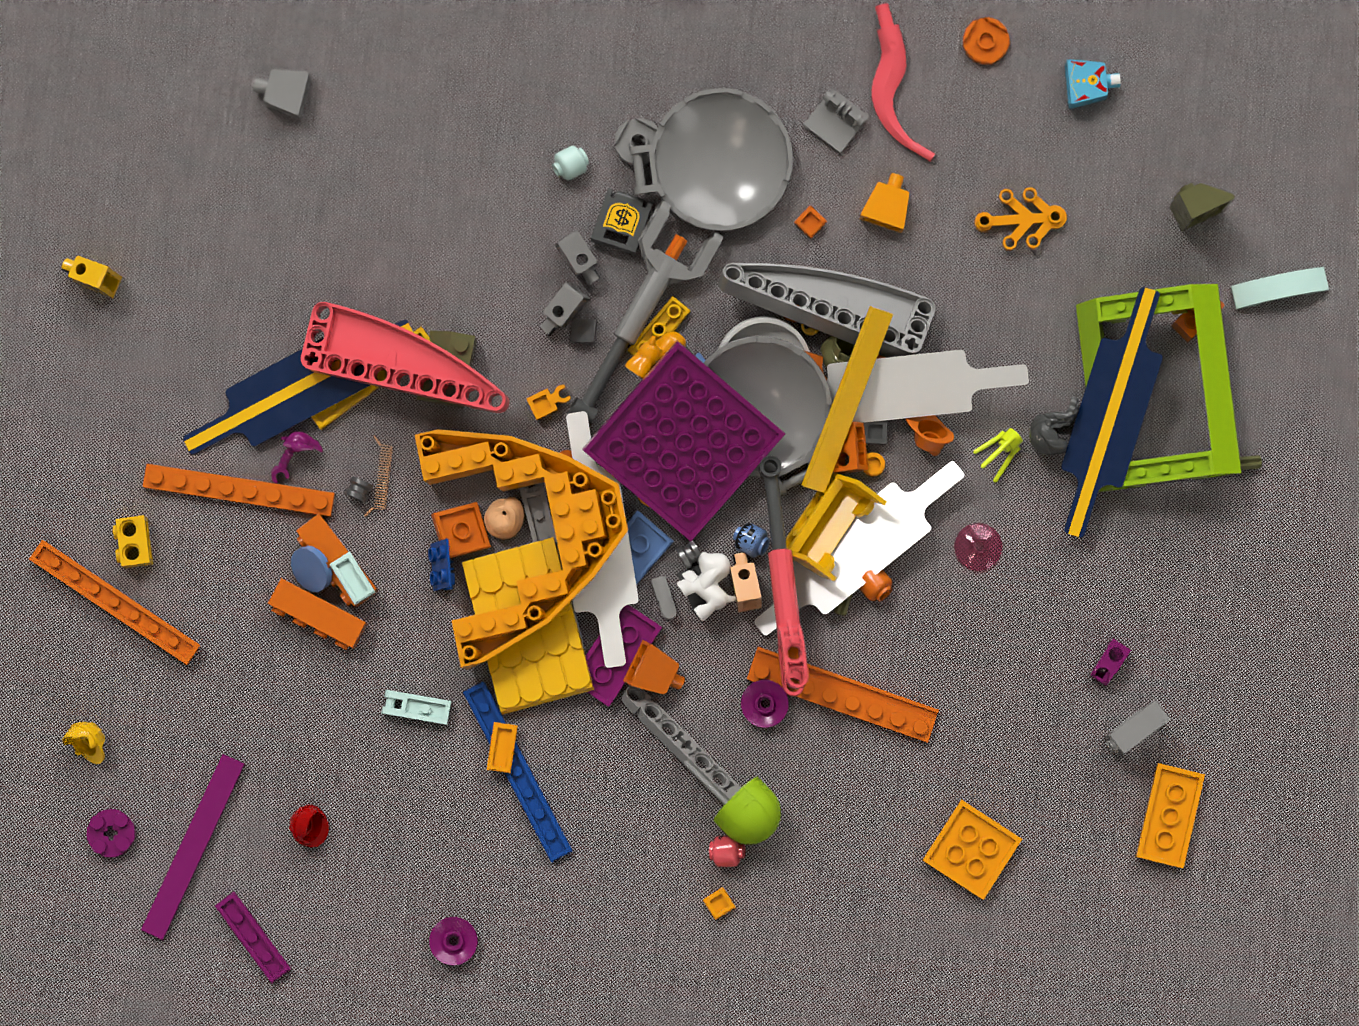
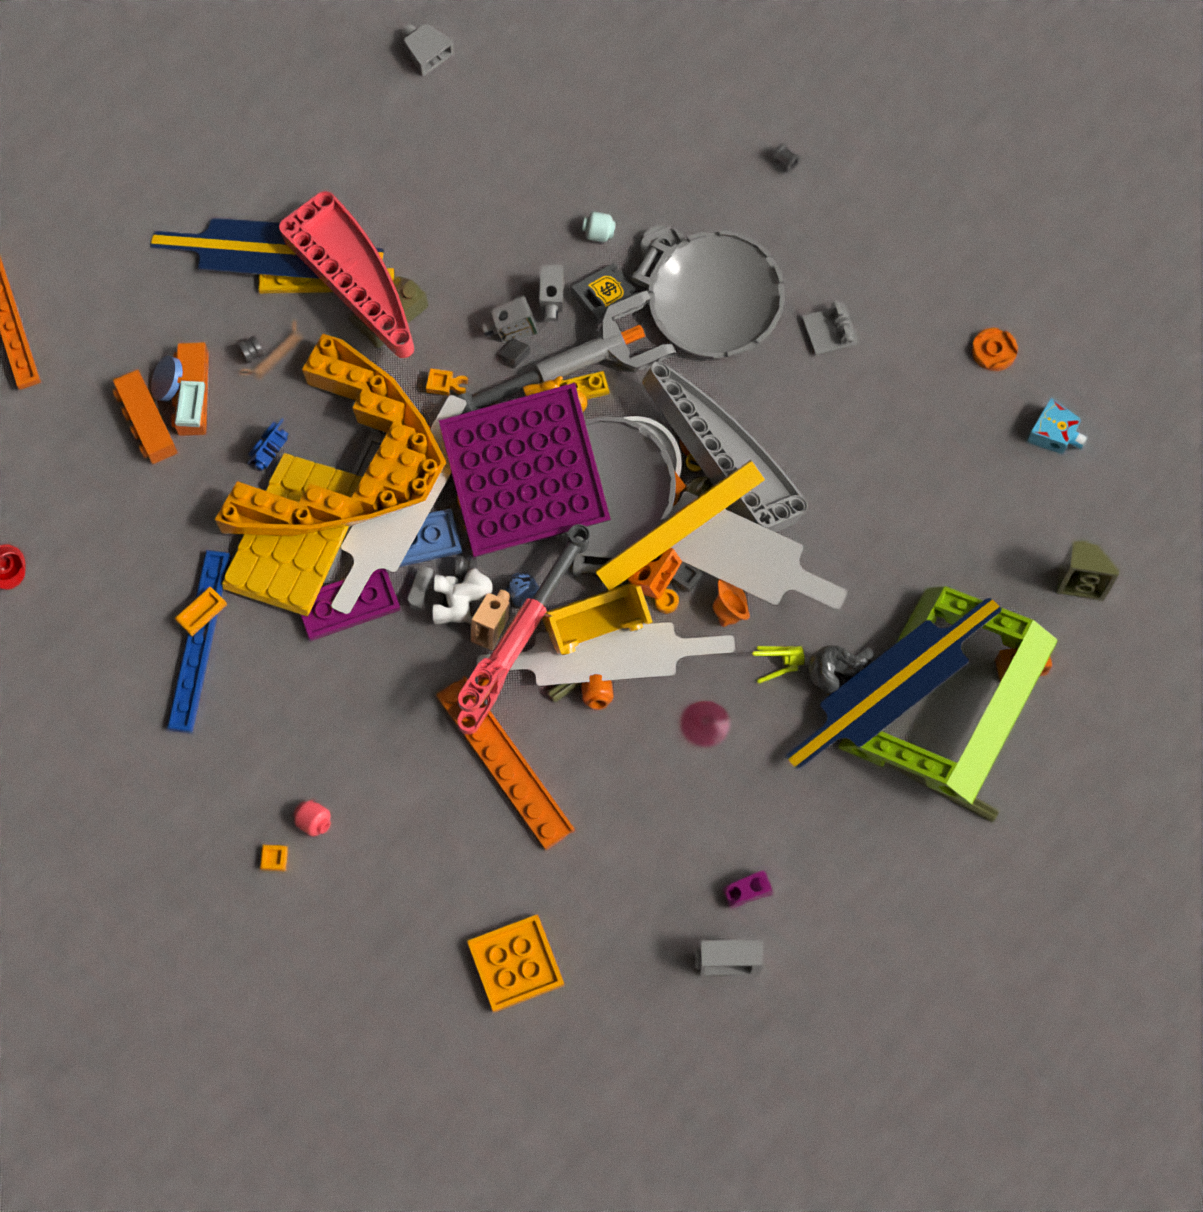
camera: 35 degrees right, 15 degrees down
(92, 275) = (179, 69): yellow torso -> none
(139, 540) = (59, 277): yellow brick -> none
(238, 490) = (163, 293): orange plate -> none
(294, 443) = (231, 284): magenta piece -> none
(417, 707) = (162, 537): light aqua plate -> none
(441, 946) = (32, 726): magenta dish -> none
(463, 529) = (302, 430): orange tile -> none
(504, 518) = (344, 444): light nougat hair -> none
(653, 670) = (366, 634): orange torso -> none
(748, 812) = (351, 789): piece -> none
(752, 703) = (431, 713): magenta dish -> none
(810, 222) = (754, 389): orange tile -> none
(887, 204) = (824, 414): light orange torso -> none
(888, 77) = (897, 324): coral animal -> none
(1024, 218) = (929, 496): light orange plant -> none
(1170, 815) = (706, 1056): light orange plate -> none
(1279, 287) = (1111, 686): light aqua slope -> none

